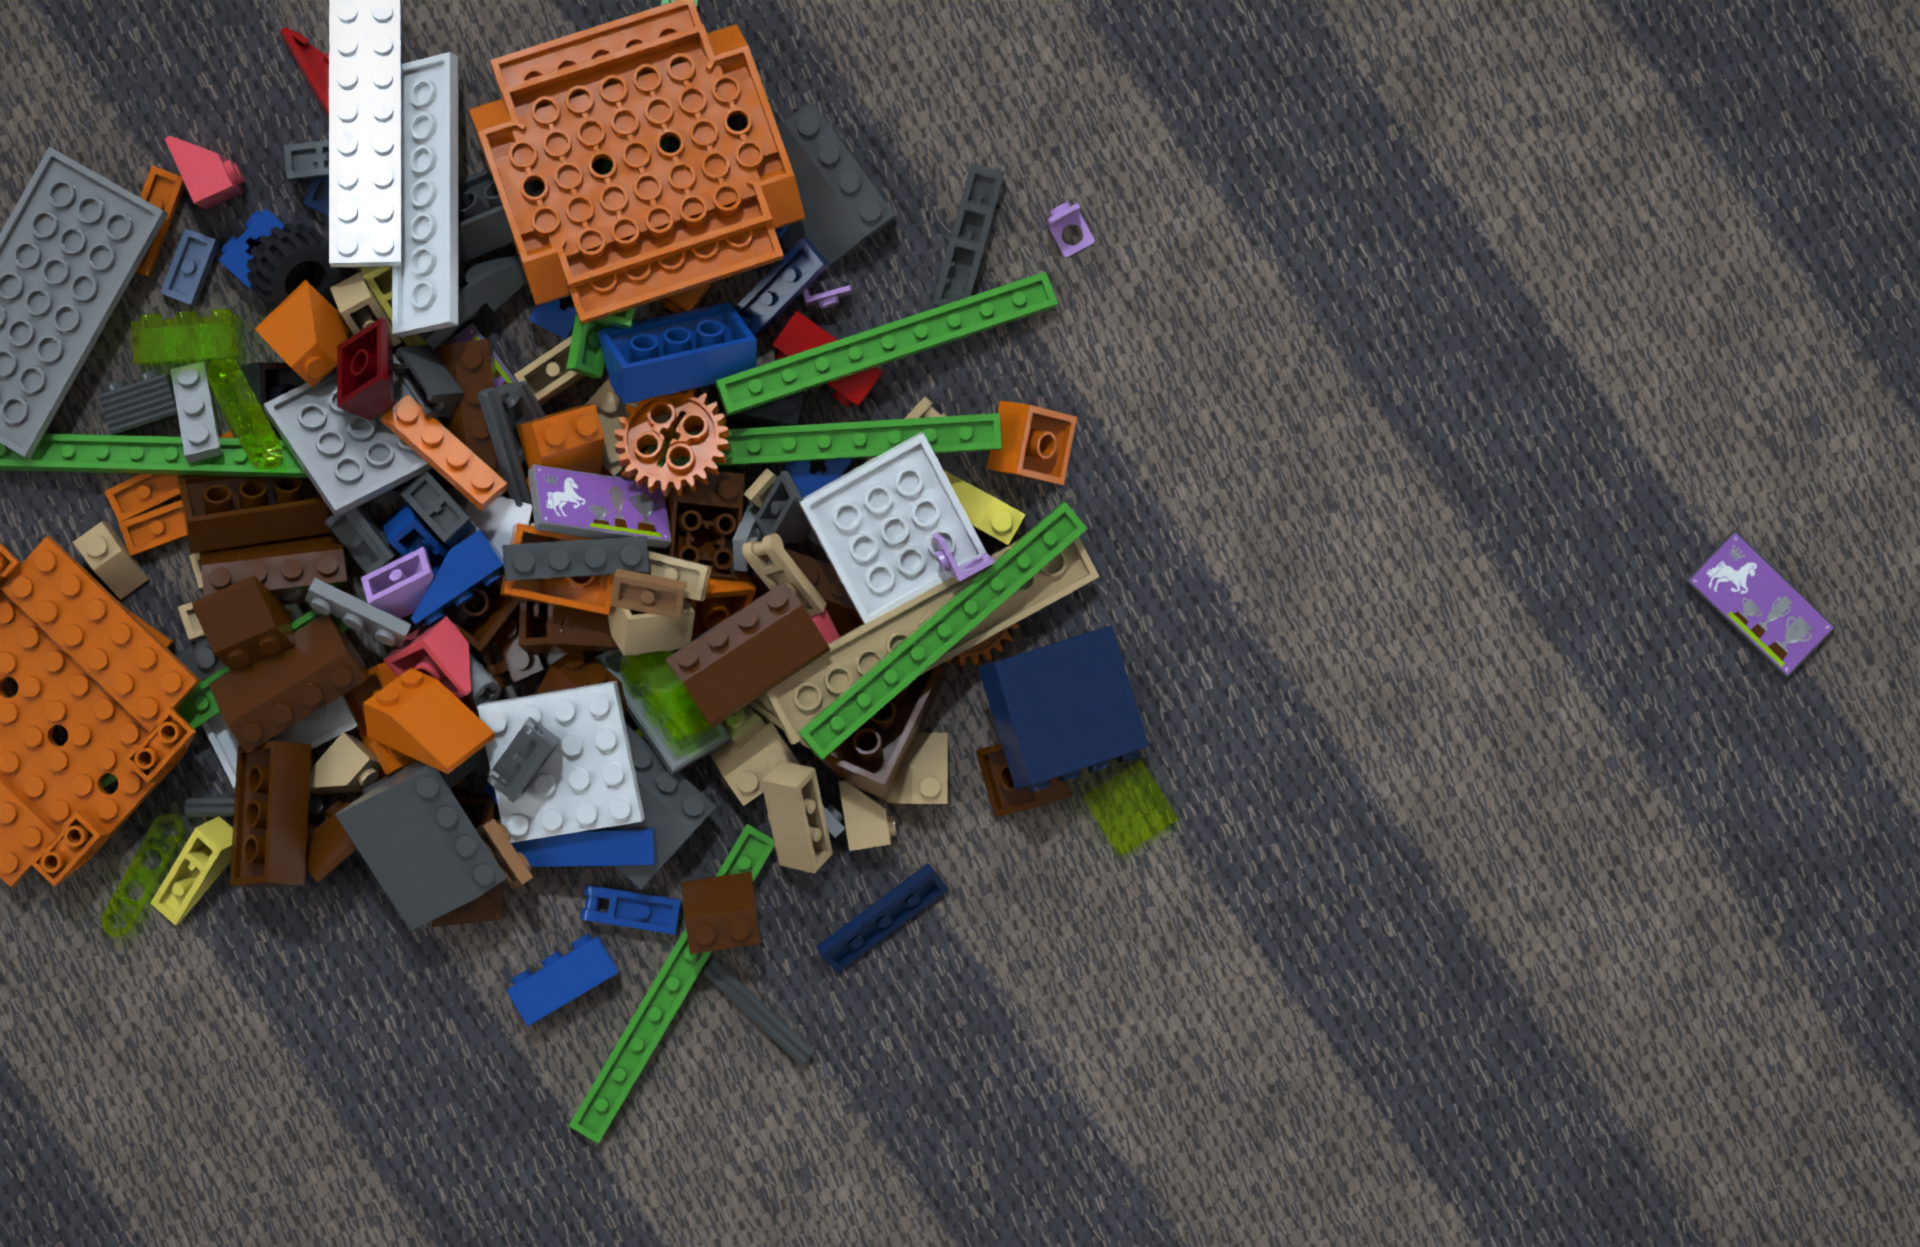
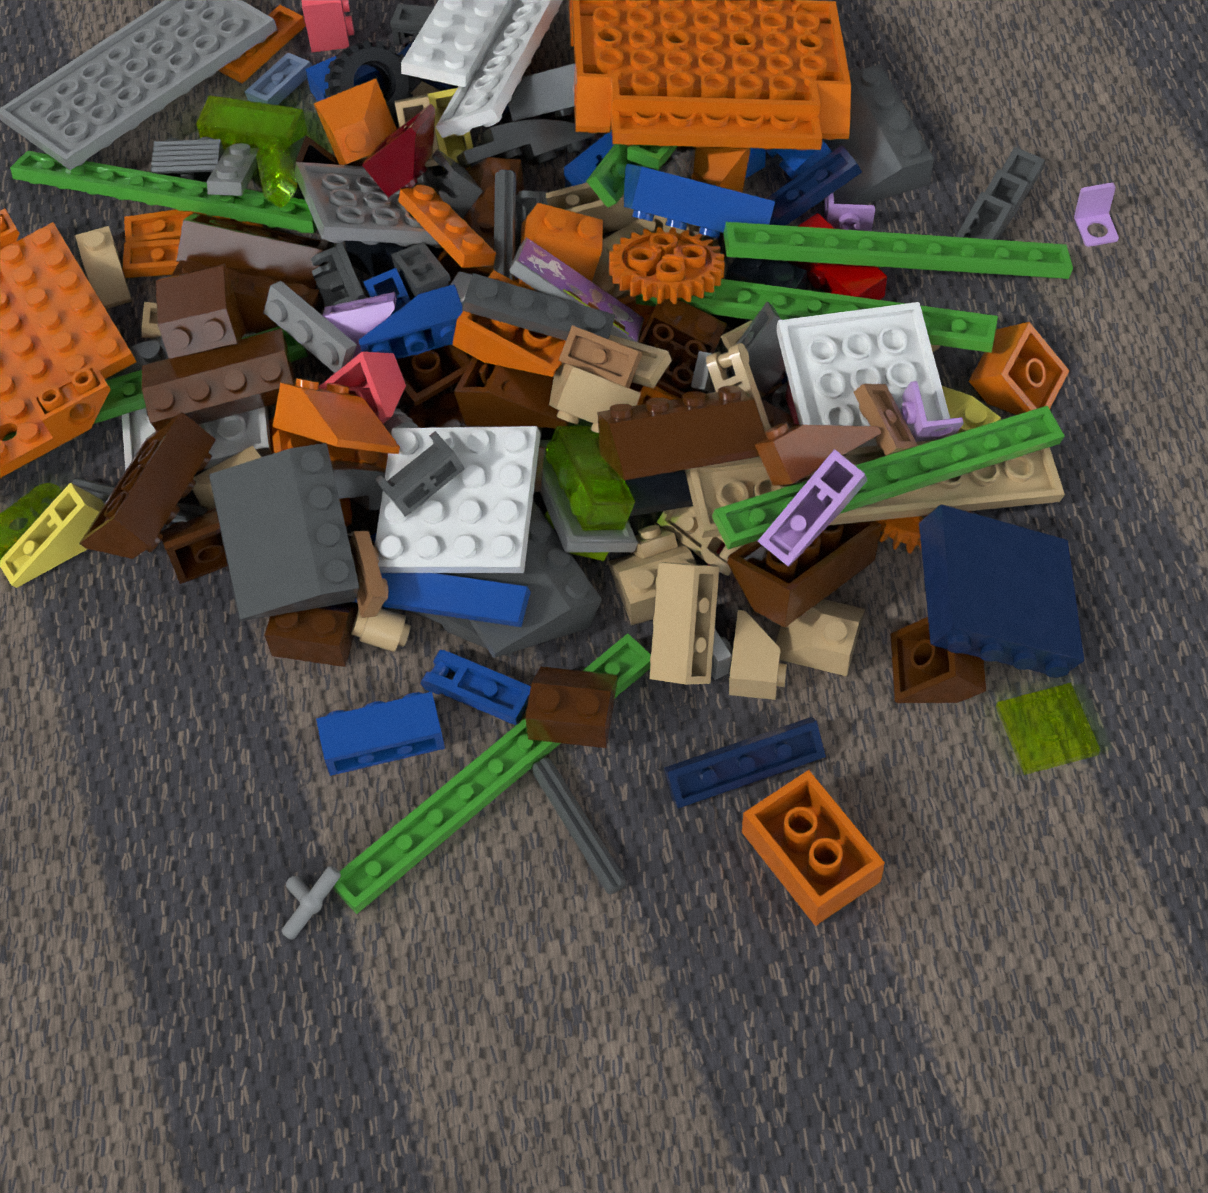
camera: 15 degrees right, 30 degrees down
(538, 886) = (383, 631): none -> tan brick
(559, 1145) = (310, 900): none -> light grey piece
(865, 636) = (802, 449): none -> dark orange slope
(886, 707) = (813, 508): none -> lavender slope
(924, 576) = (881, 410): none -> medium nougat plate
(959, 986) = (812, 847): none -> orange brick

